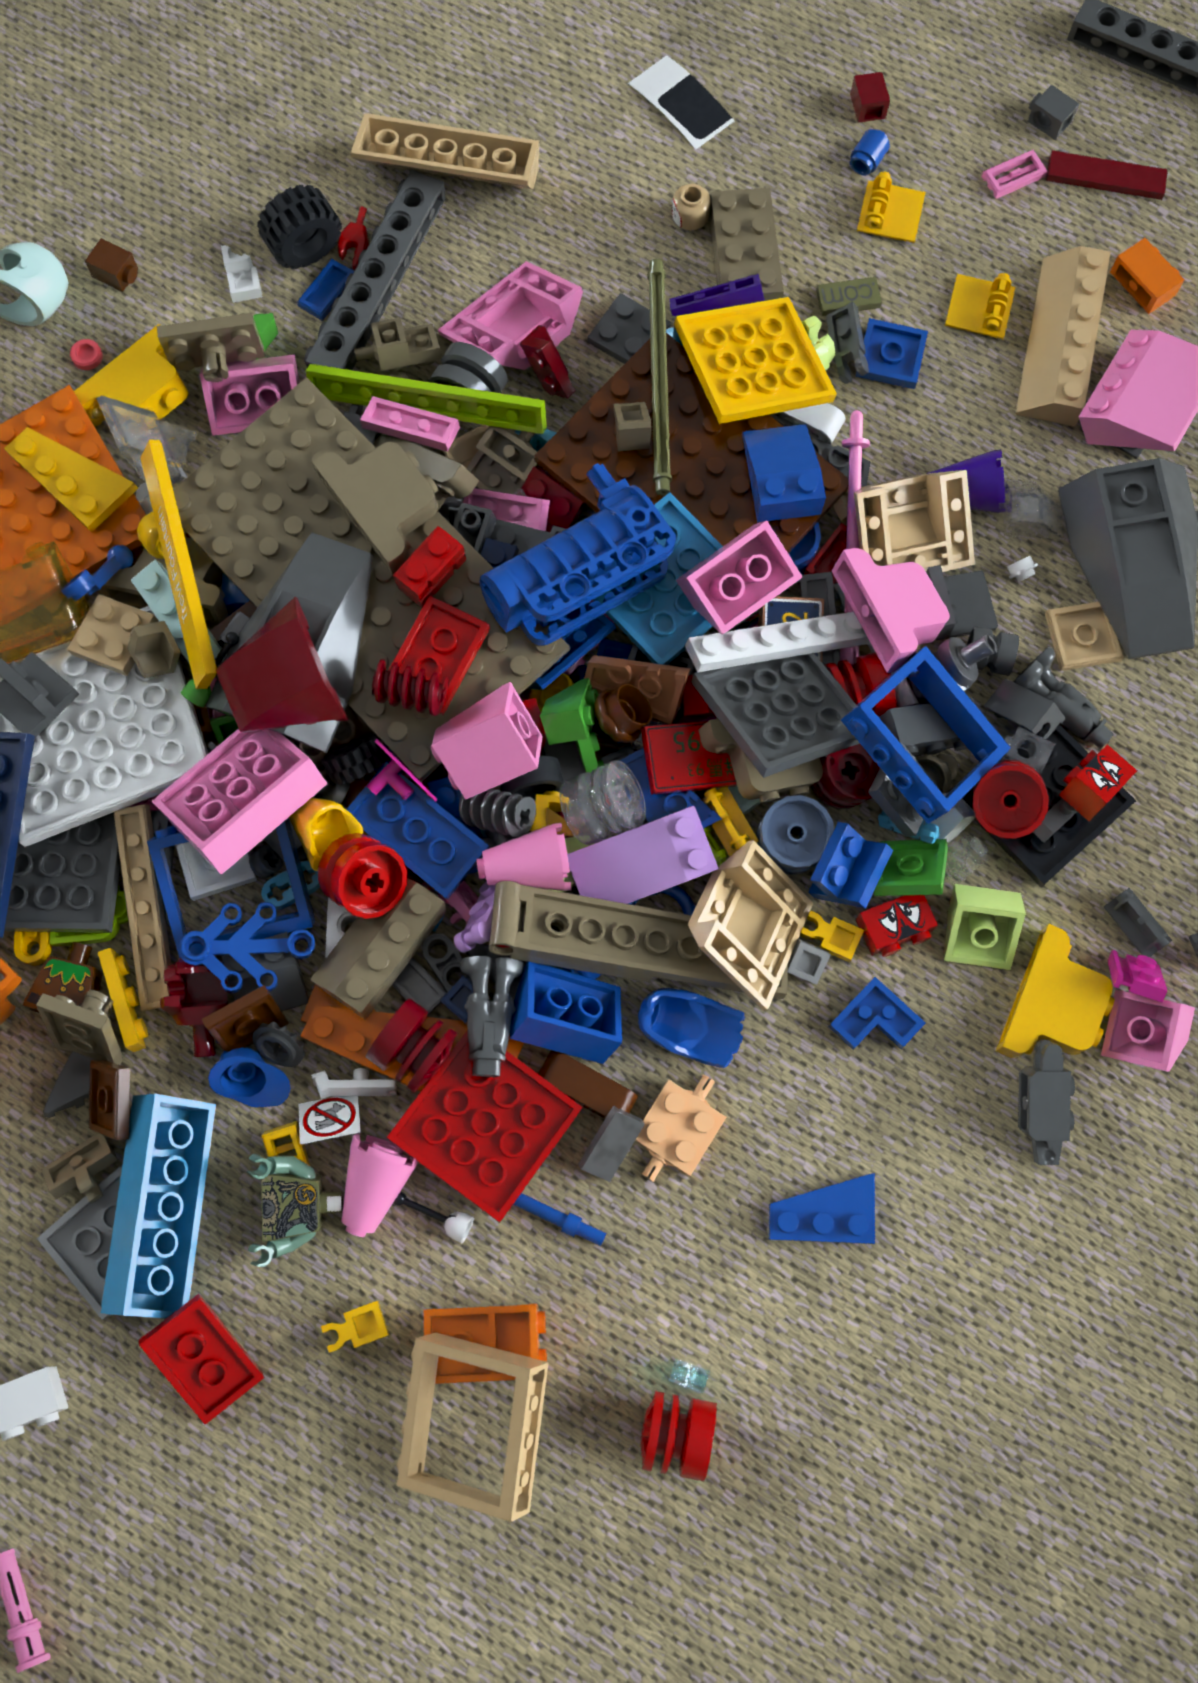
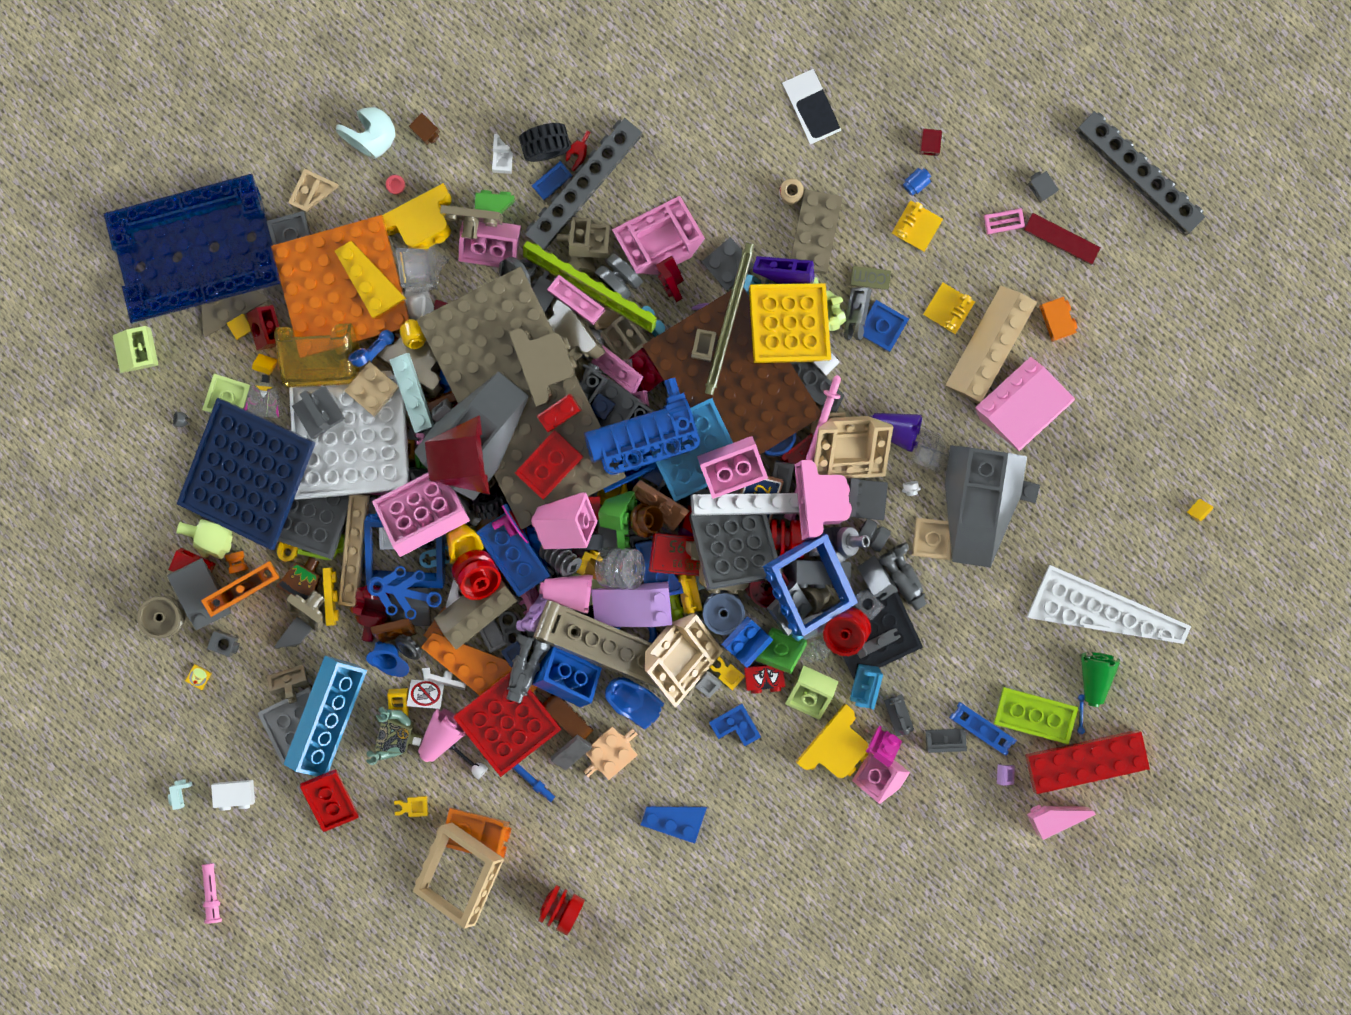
camera: 15 degrees right, 15 degrees up
(109, 1099) = (311, 652): reddish brown tile -> none
(153, 649) = (393, 410): dark tan panel -> none
(178, 565) = (418, 390): yellow tile -> none
(201, 696) = (412, 441): bright green hinge -> none
(409, 689) = (527, 485): dark red piece -> none
(411, 1045) = (478, 674): dark red wheel -> none
(447, 151) = (649, 114): tan slope -> none
(689, 1375) = (576, 881): clear light blue piece -> none
(784, 473) = (782, 400): blue slope -> none
(1045, 1102) = (809, 799): dark grey hinge -> none
(1070, 886) = (866, 686): none -> dark azure hinge
(1097, 782) = (902, 634): red brick -> none

